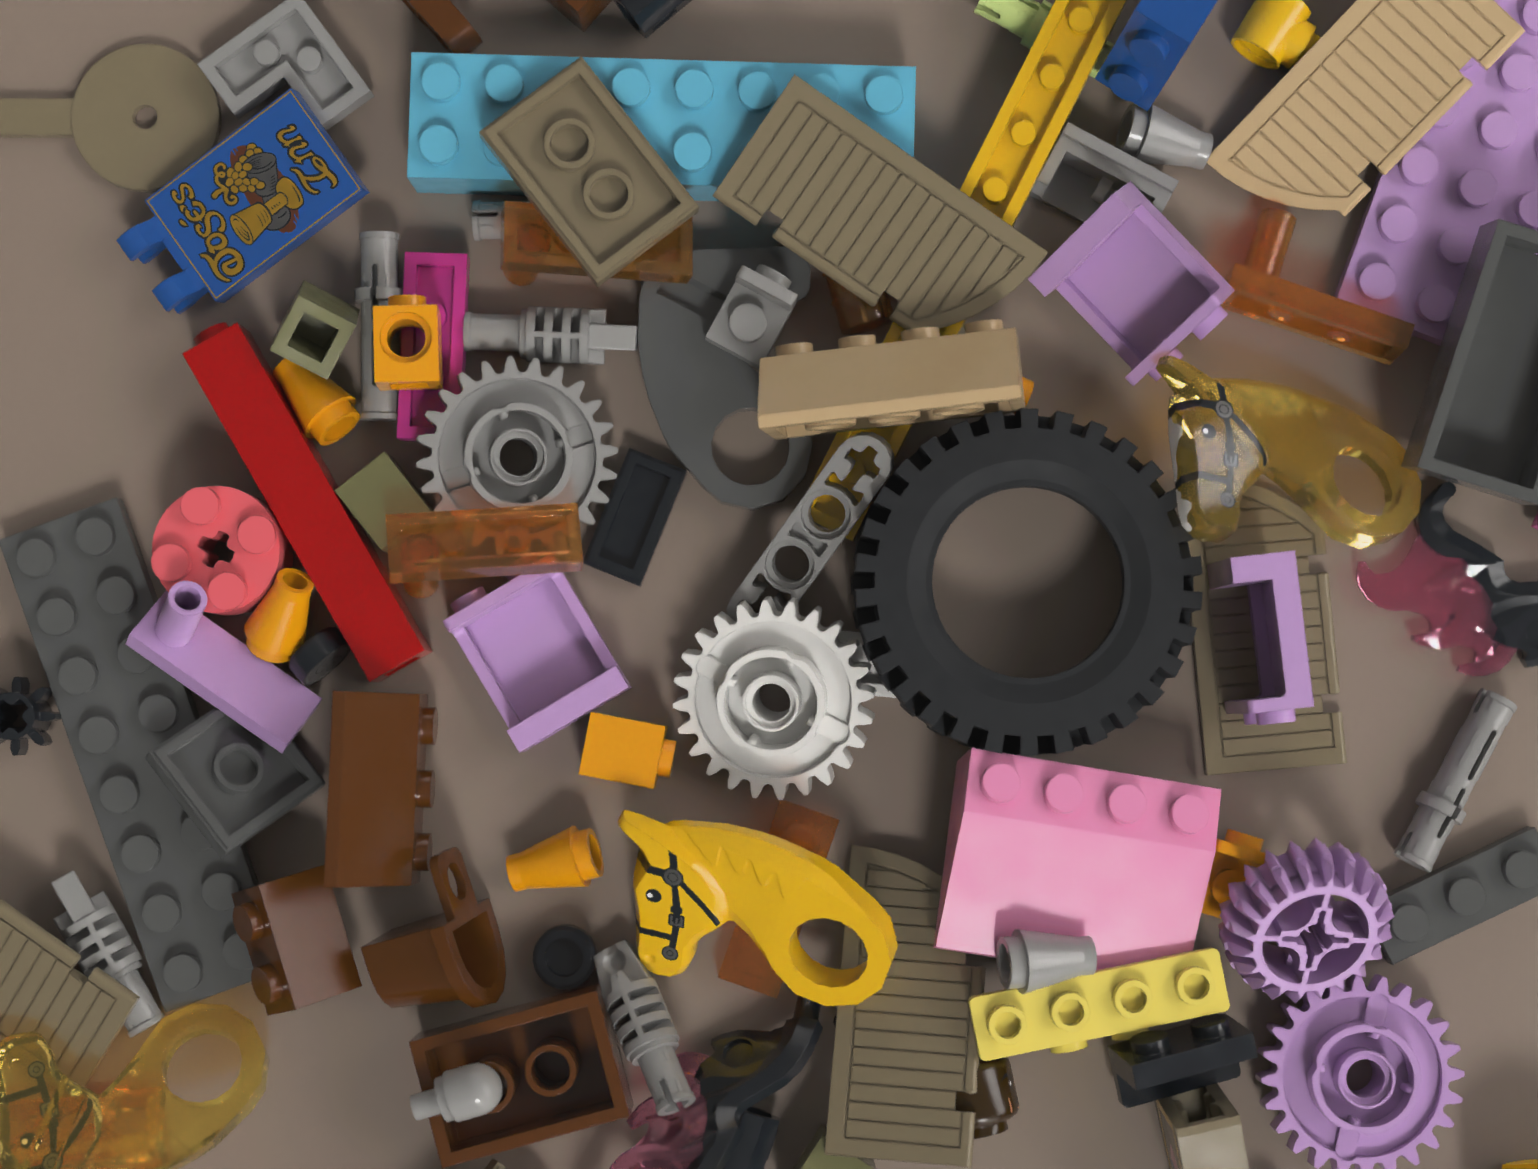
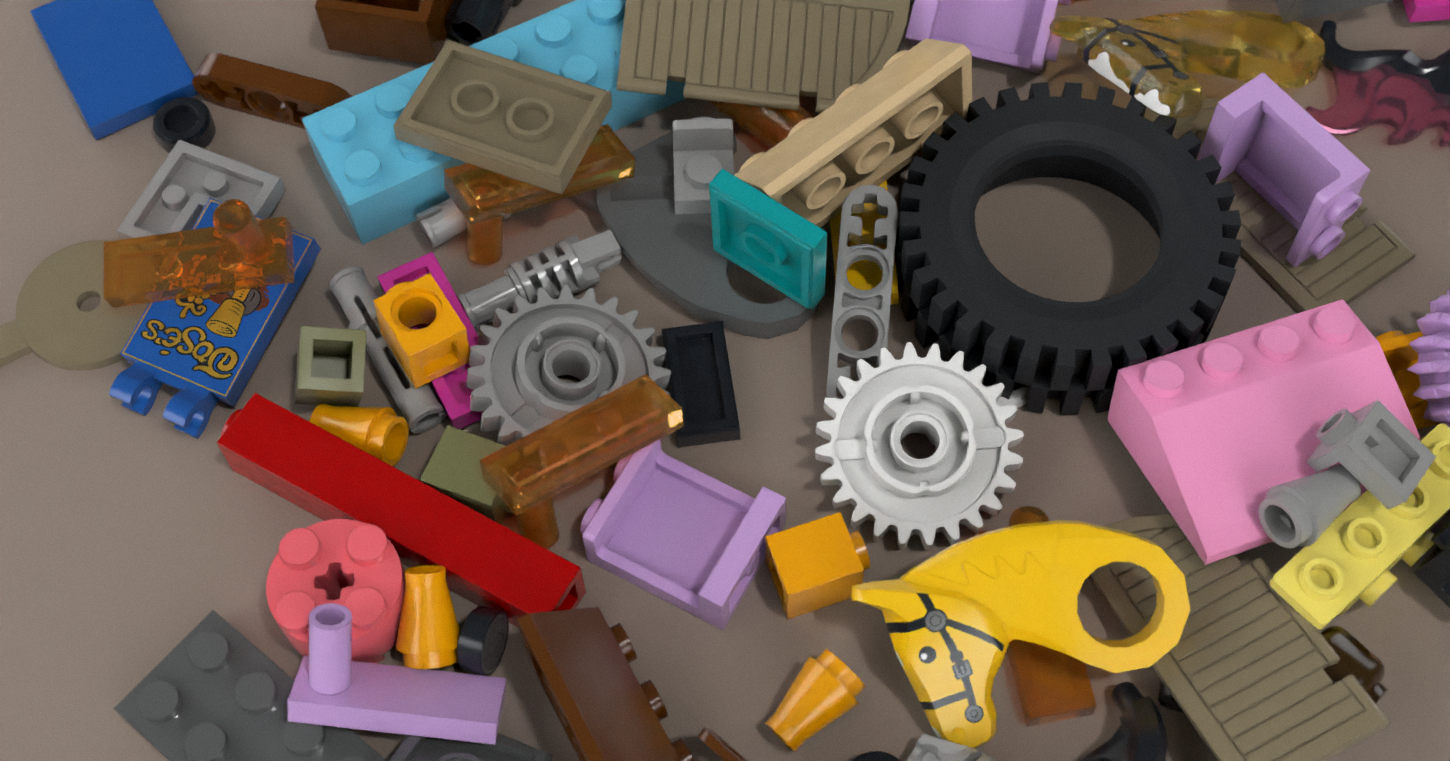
camera: 25 degrees left, 25 degrees down
(248, 155) = (202, 261): none -> clear orange piece
(749, 442) = (768, 239): none -> teal tile
(1121, 953) = (1375, 451): none -> light grey bracket

